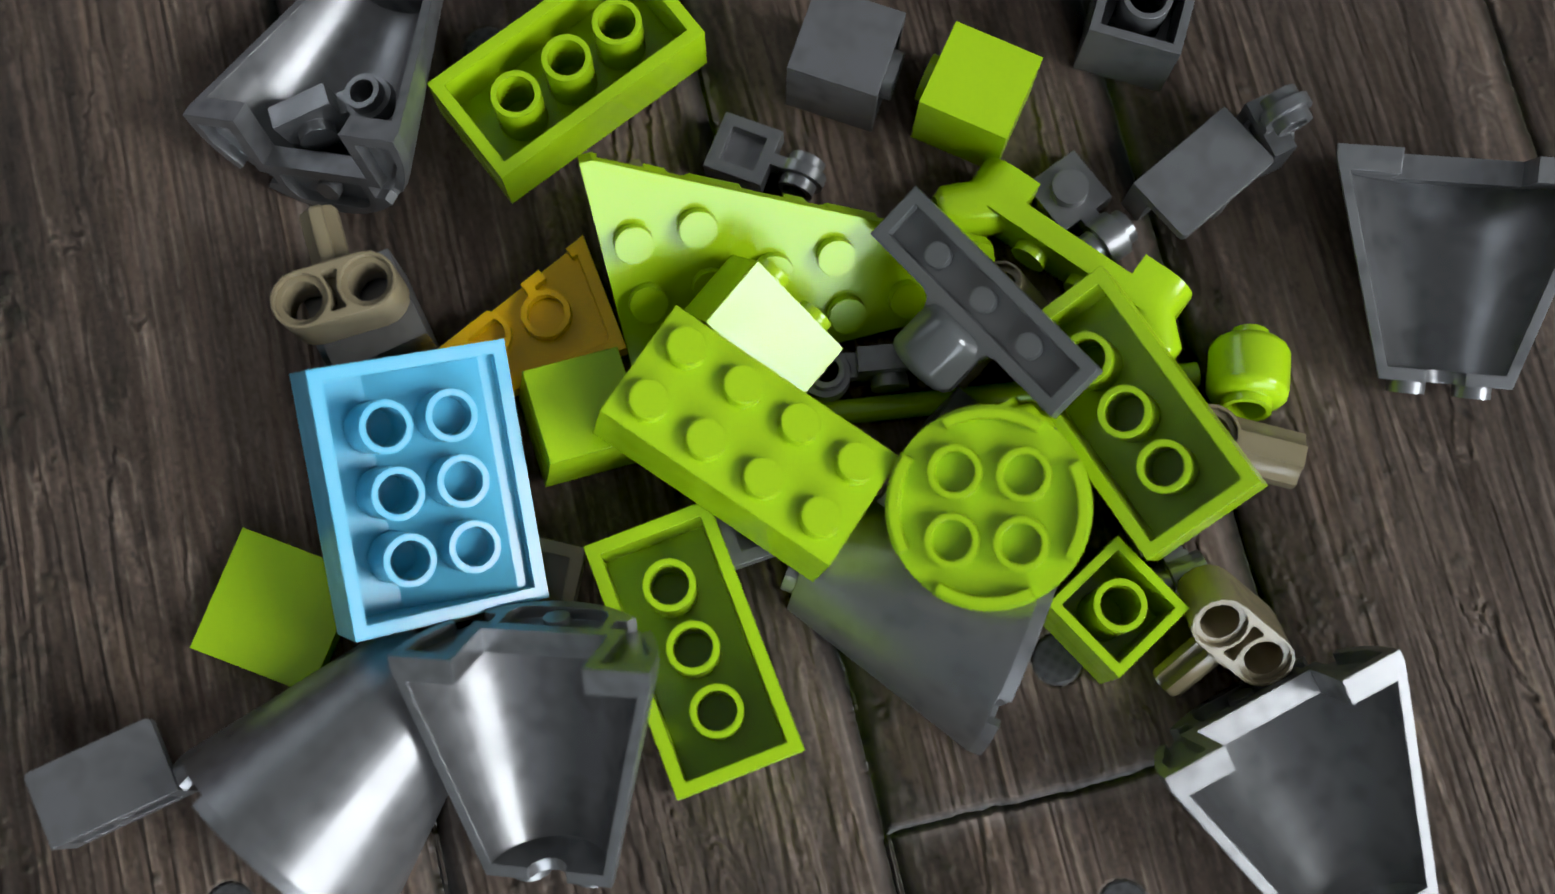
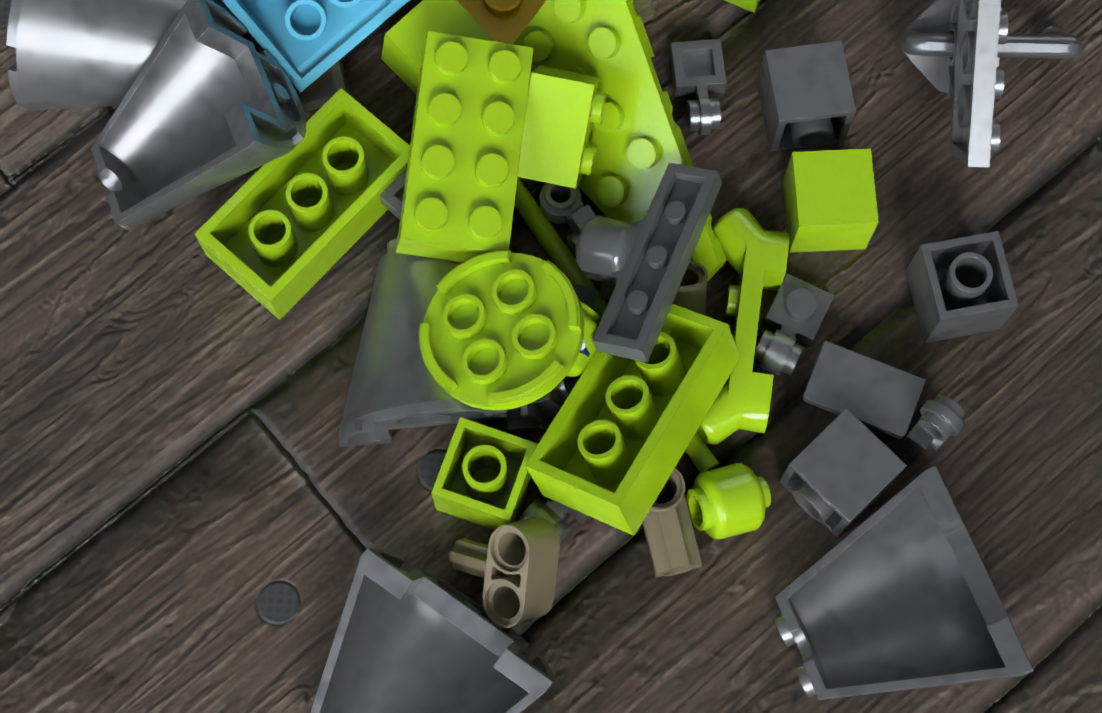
camera: 65 degrees right, 5 degrees down
(1279, 243) = (841, 473): none -> flat silver head

